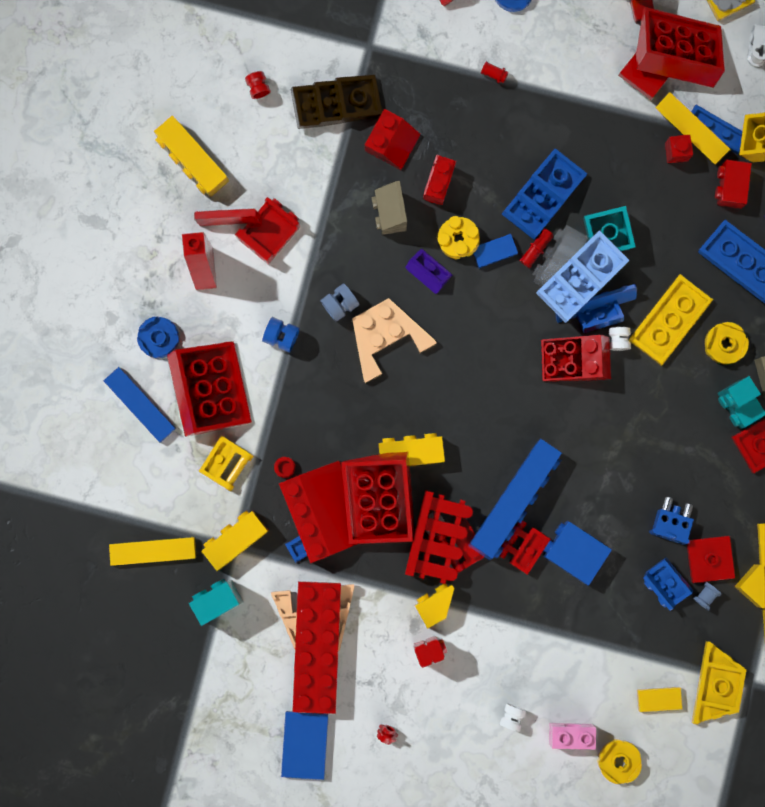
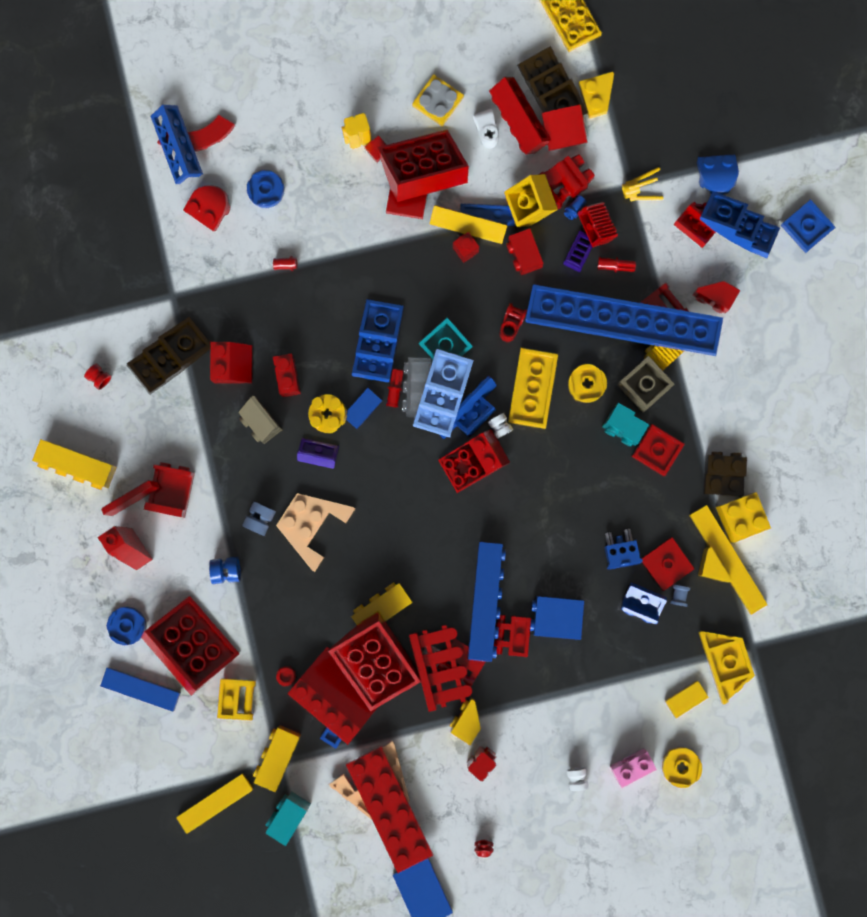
camera: 25 degrees left, 0 degrees up
(686, 244) = (512, 319): none -> red piece

